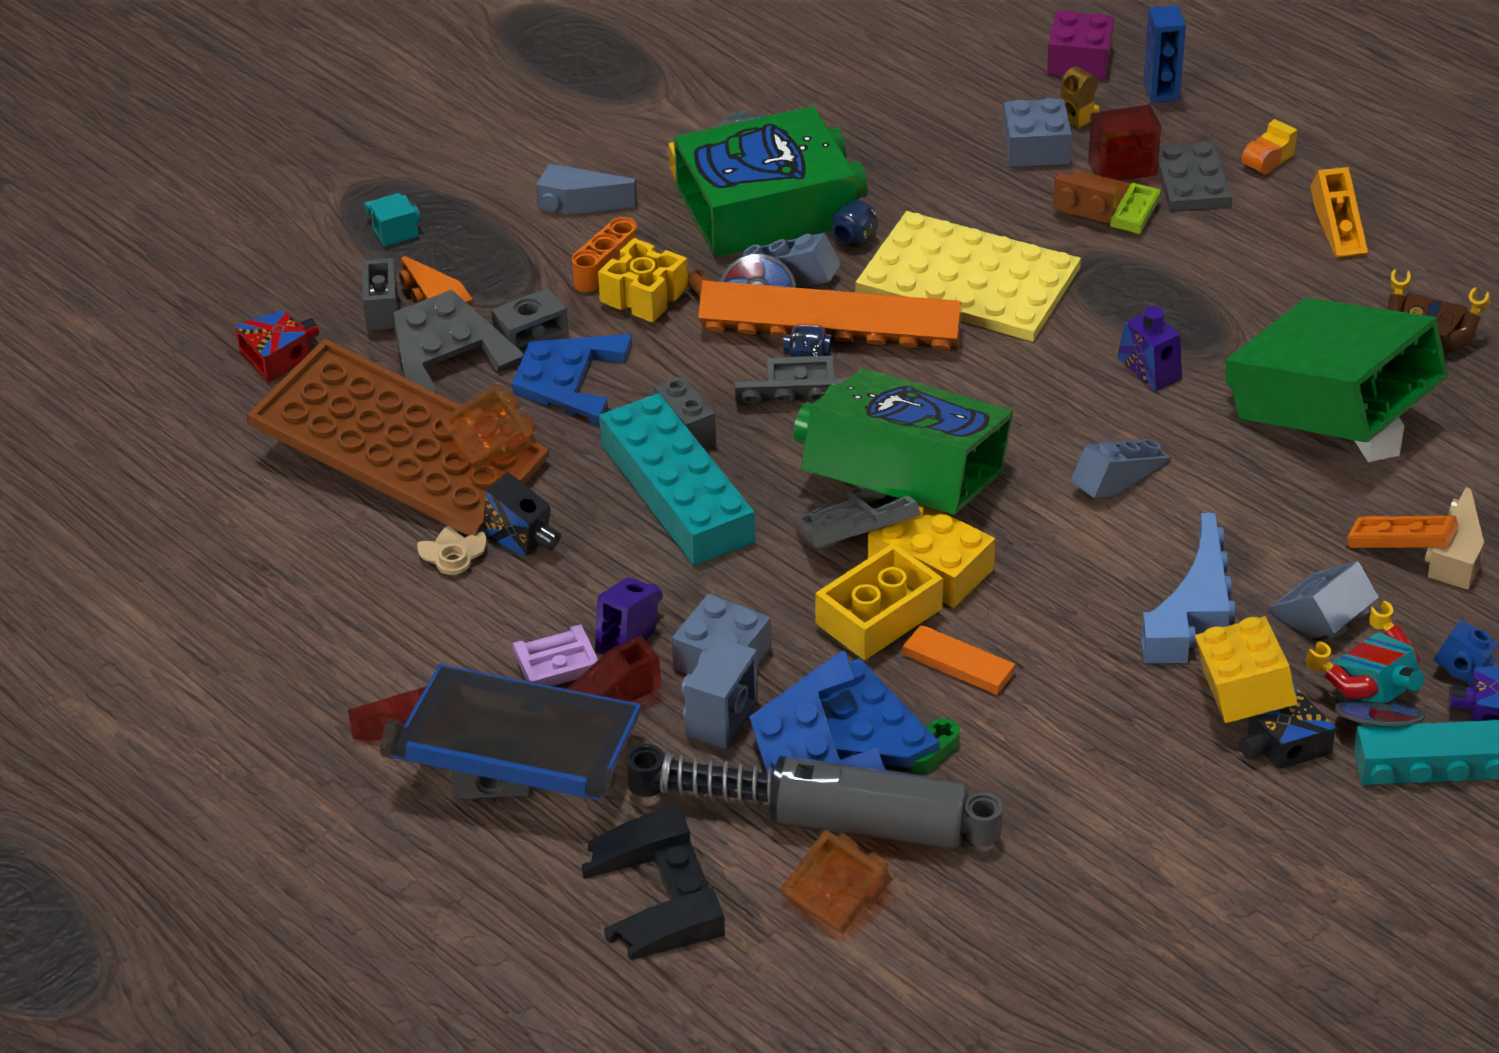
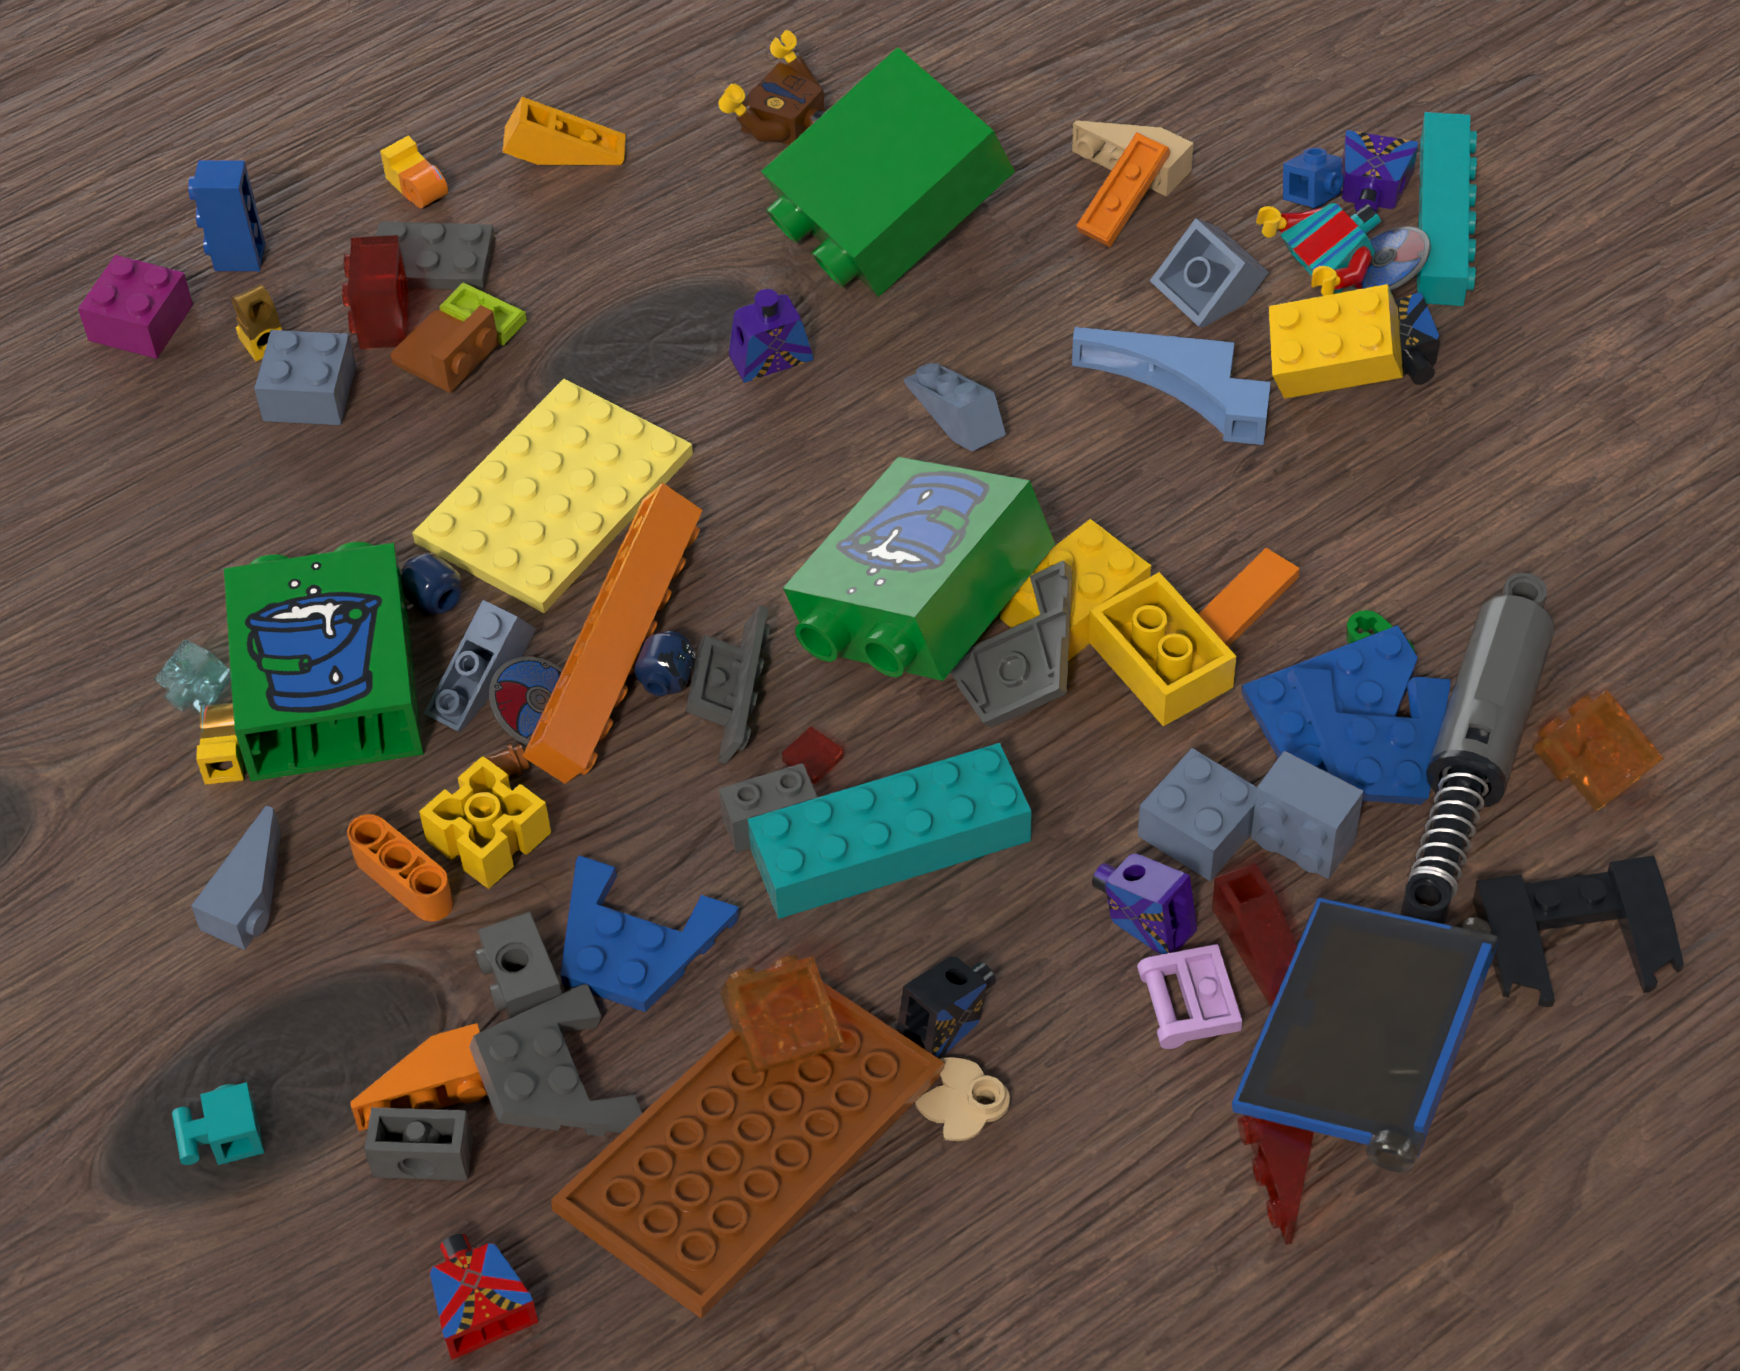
camera: 80 degrees left, 10 degrees up
(747, 438) = (815, 752): none -> clear red tile

